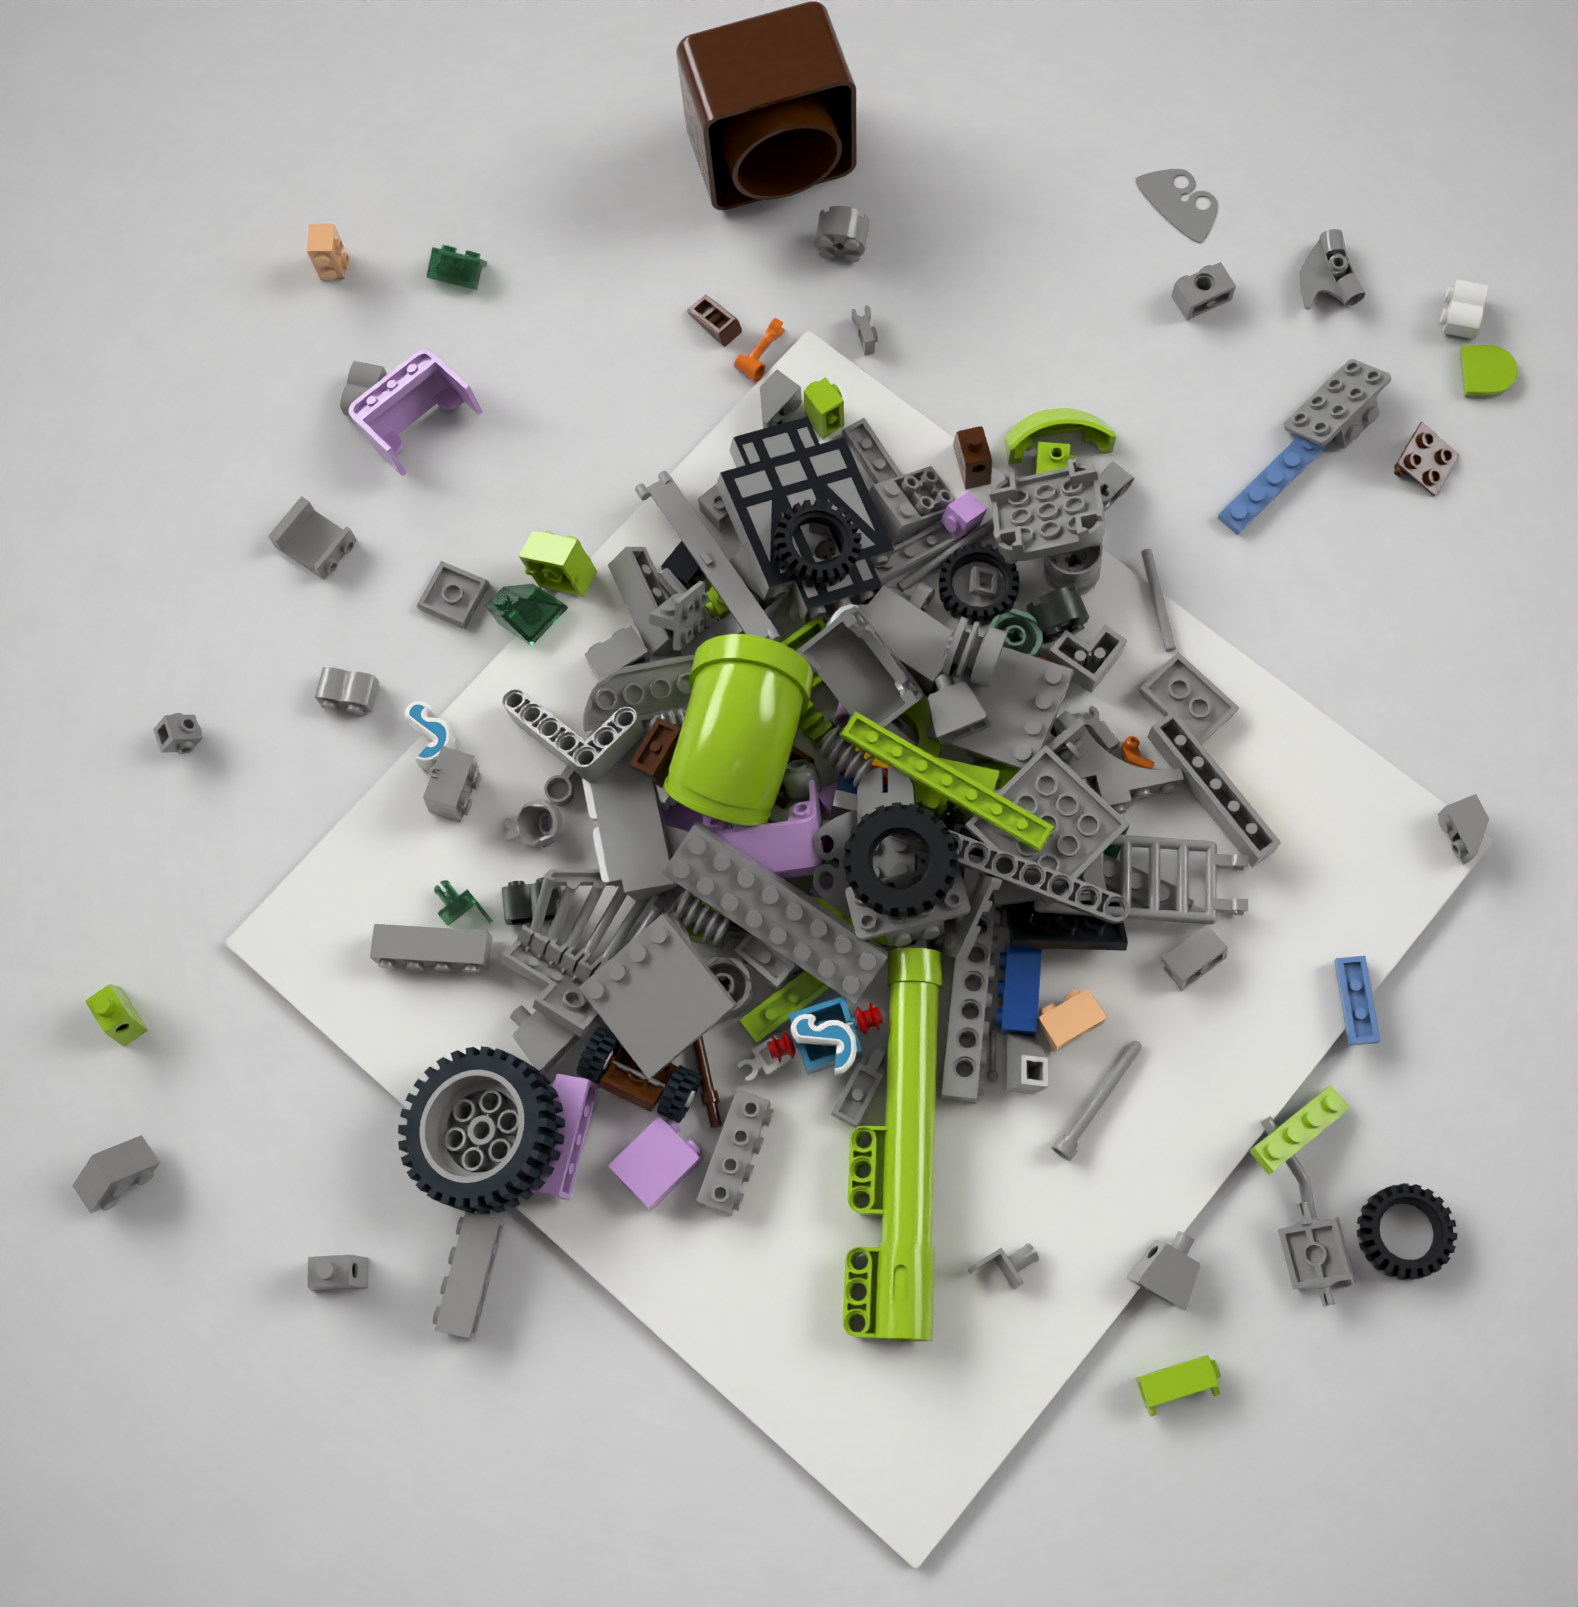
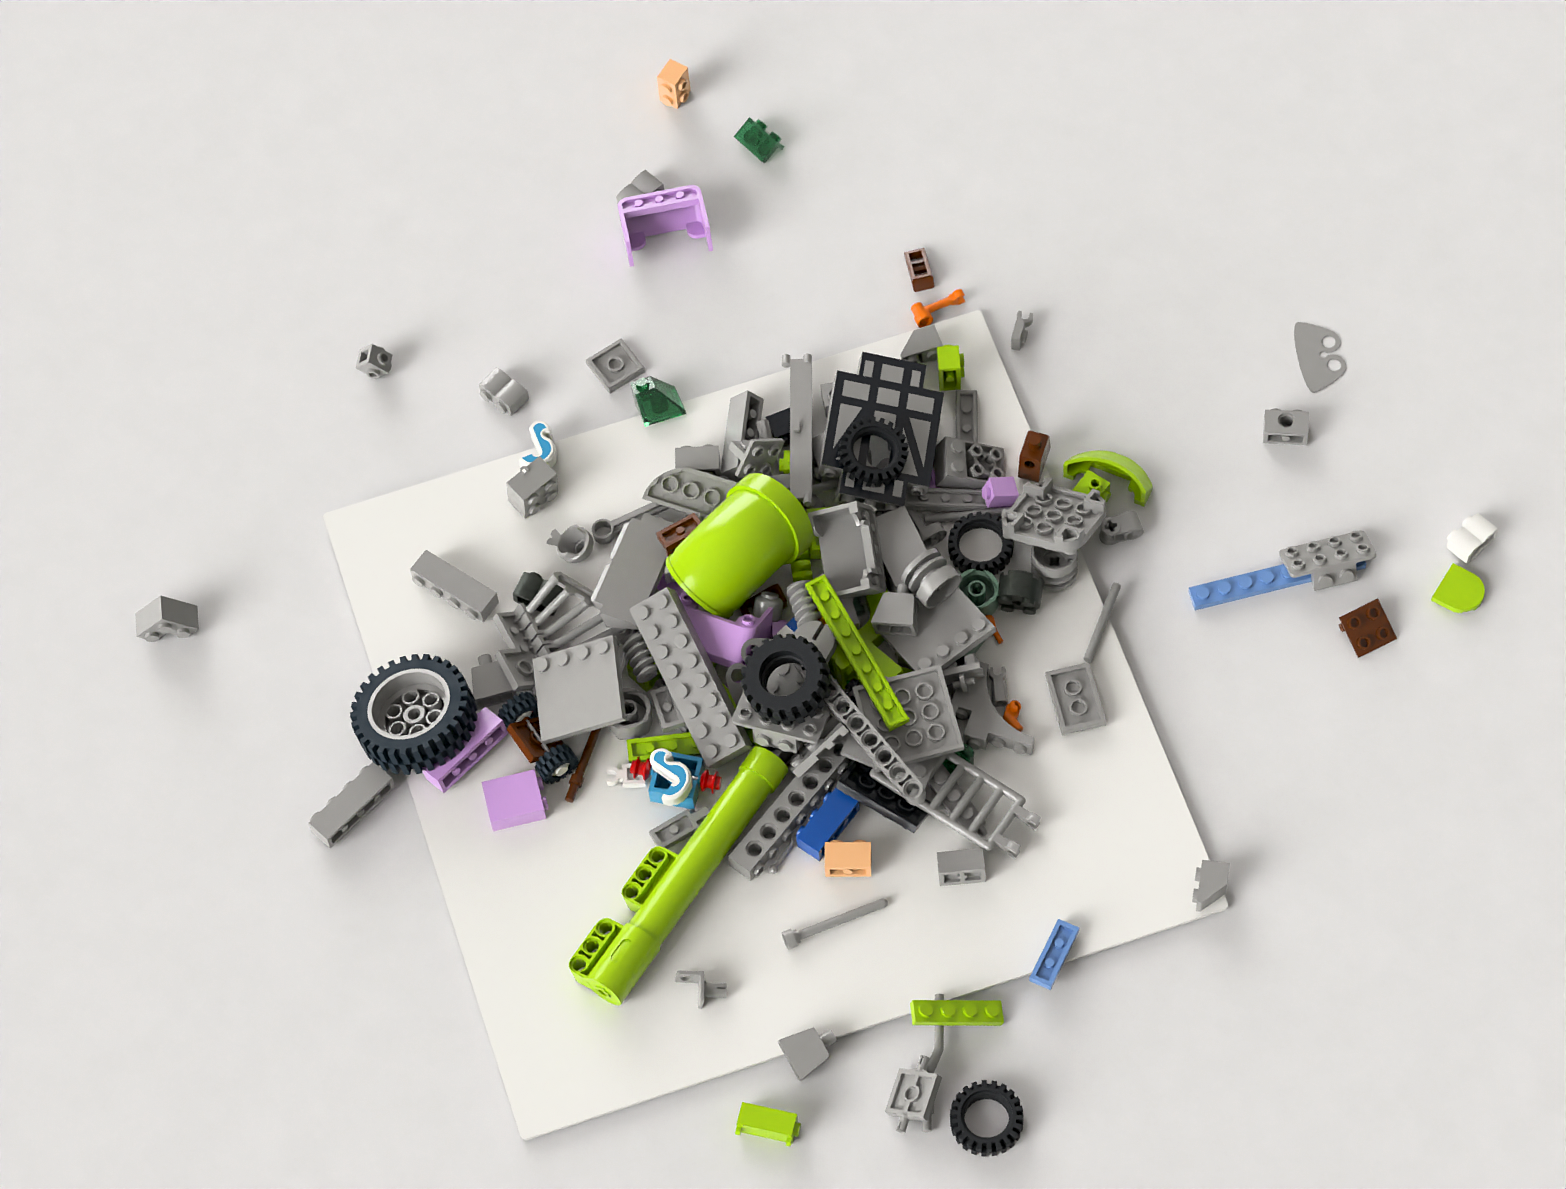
camera: 30 degrees right, 10 degrees down
(114, 1009) = (226, 515): lime torso -> none
(312, 539) = (542, 278): light grey panel -> none
(336, 1272) = (265, 754): light grey torso -> none
(456, 904) = (488, 568): clear green bracket -> none
(558, 563) = (696, 379): lime brick -> none
(587, 758) = (634, 515): light grey beam -> none
(734, 1152) = (569, 821): light grey brick -> none
(768, 105) = (1038, 136): reddish brown piece -> none
(842, 233) = (1046, 253): light grey brick -> none
(983, 582) = (985, 545): light grey tile -> none
(1026, 1064) = (797, 871): light grey slope -> none
(1088, 661) = (1022, 636): light grey brick -> none
(1213, 789) = (1048, 764): light grey brick -> none
(1330, 272) = (1389, 460): light grey pin -> none

